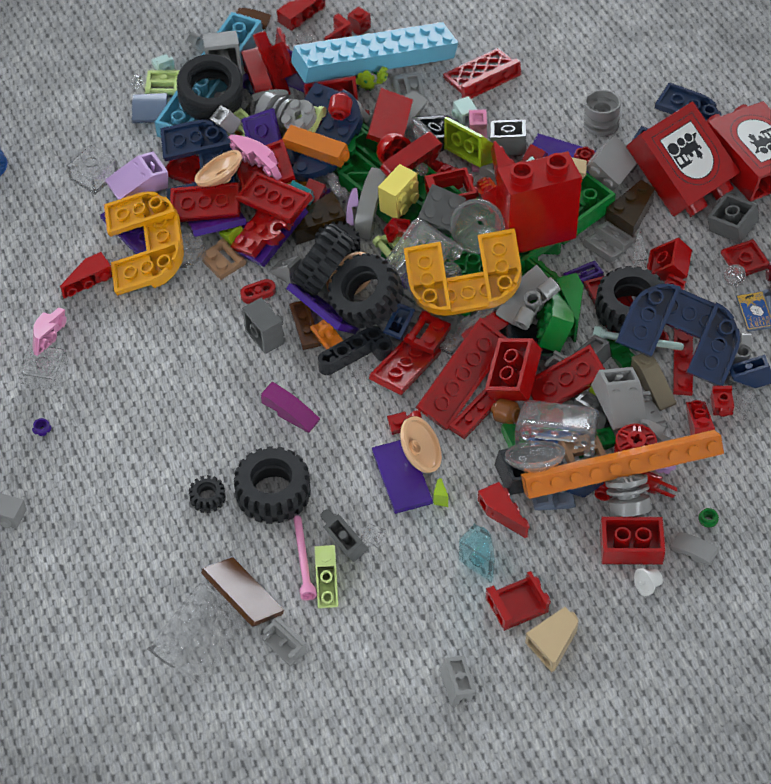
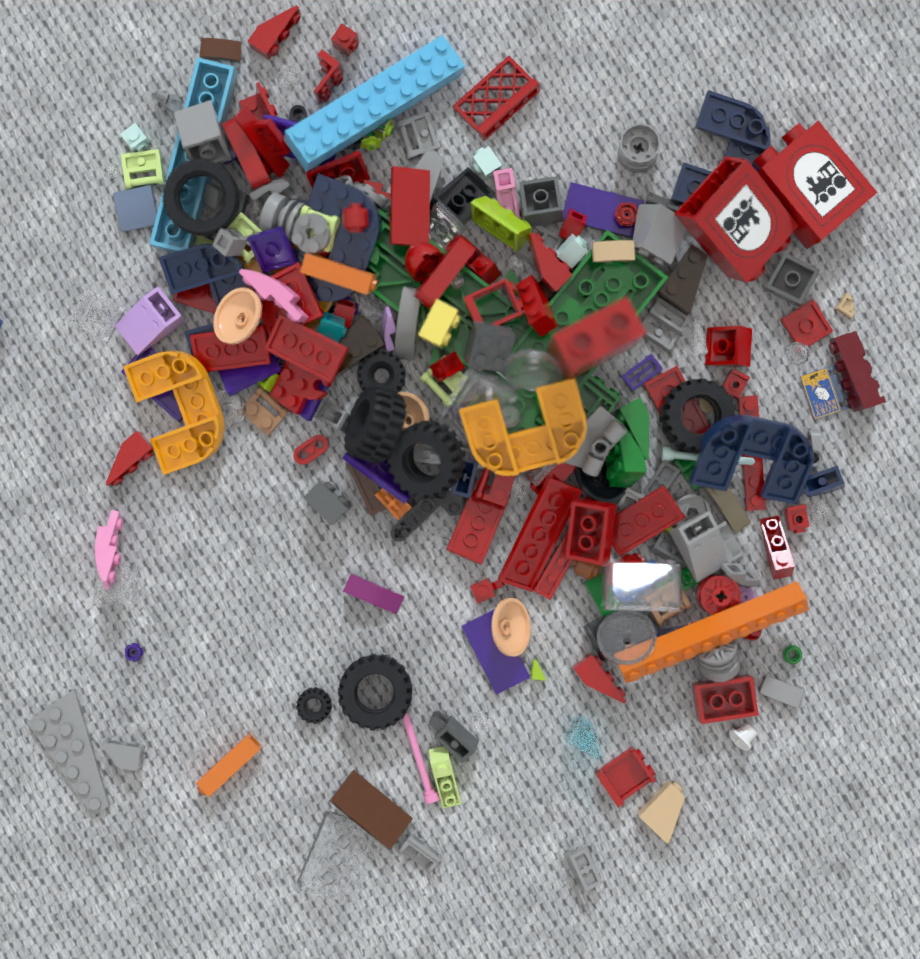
camera: 15 degrees left, 35 degrees up
(106, 532) = (228, 765): none -> orange brick

